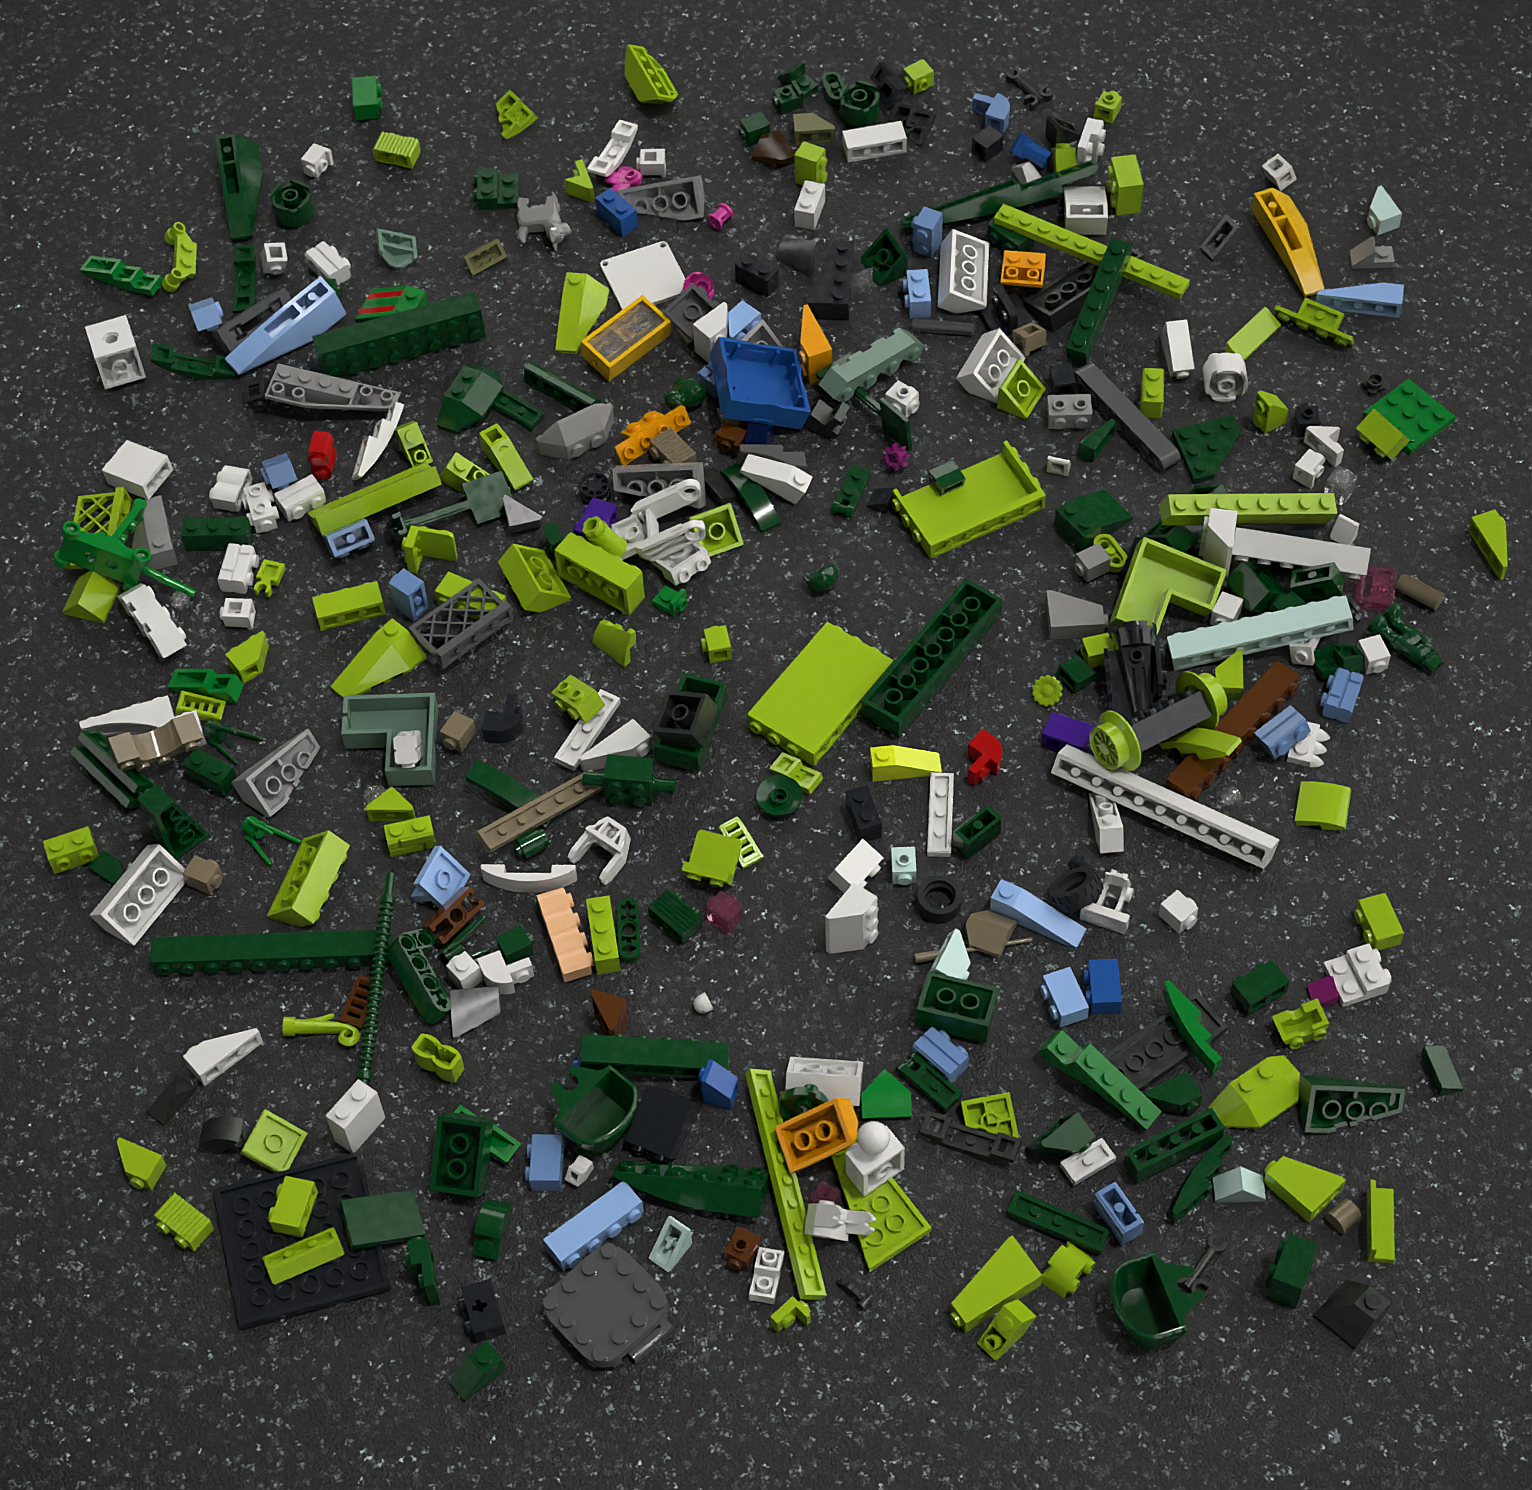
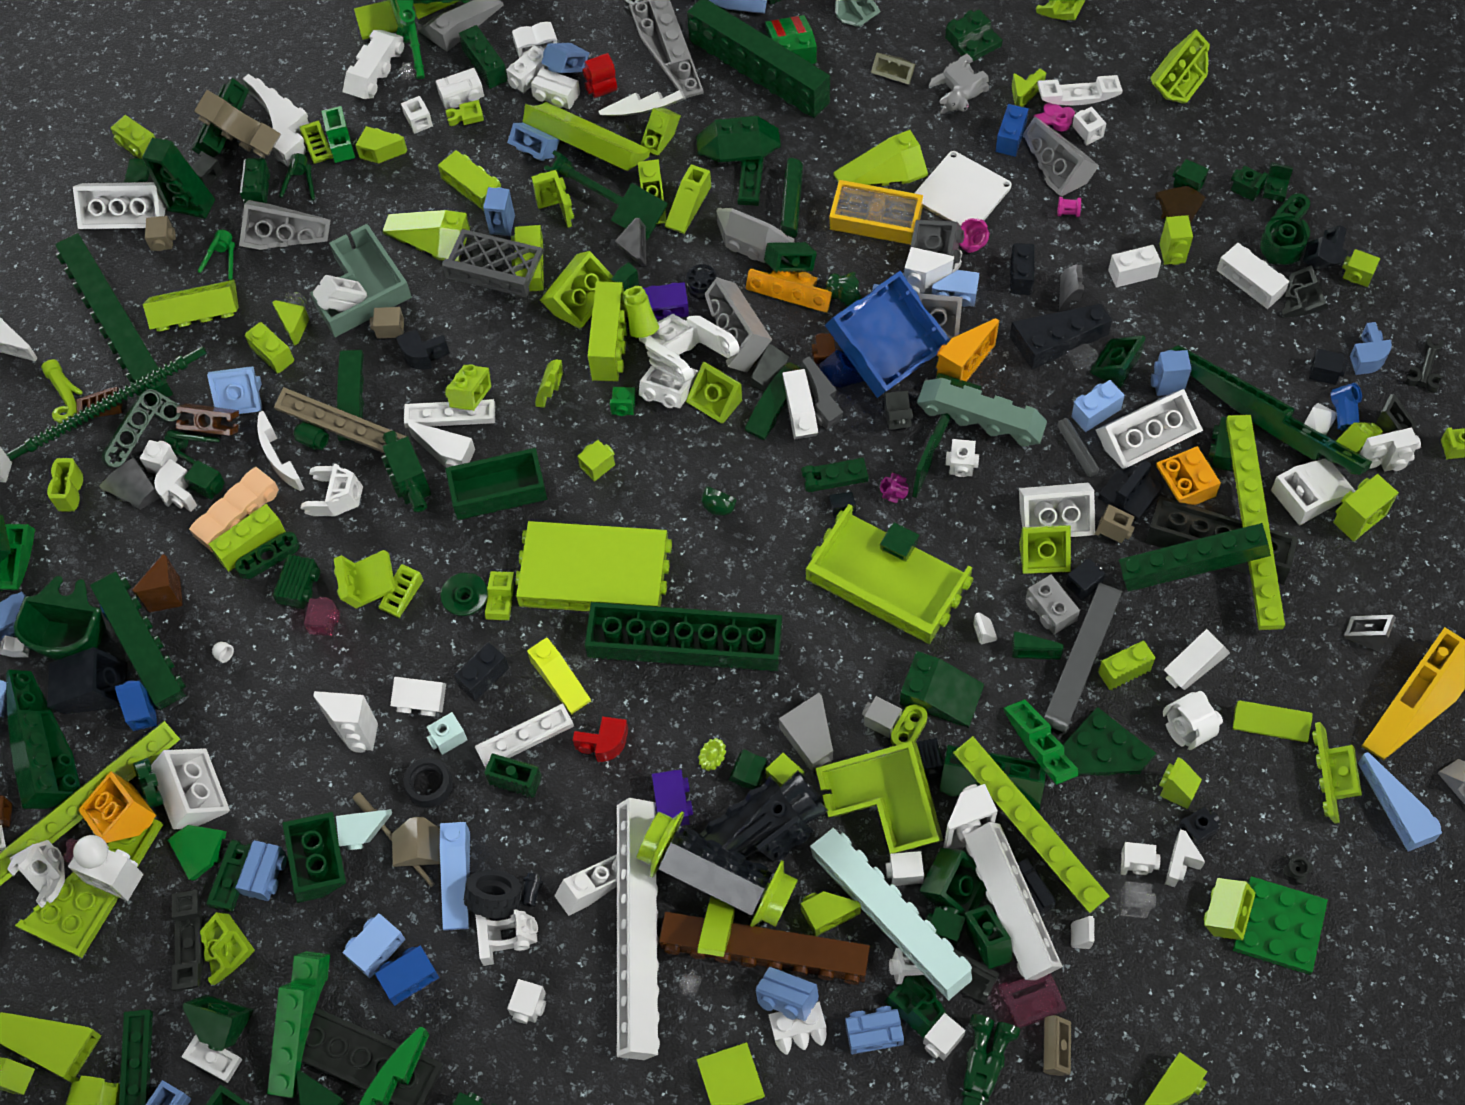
camera: 60 degrees right, 5 degrees up
(626, 414) = (790, 256): none -> dark green brick
(671, 448) = (780, 314): dark tan brick -> none
(685, 718) = (476, 473): pearl dark grey brick -> none
(812, 129) = (1224, 219): olive slope -> none
(1174, 477) = (1043, 746): none -> green slope

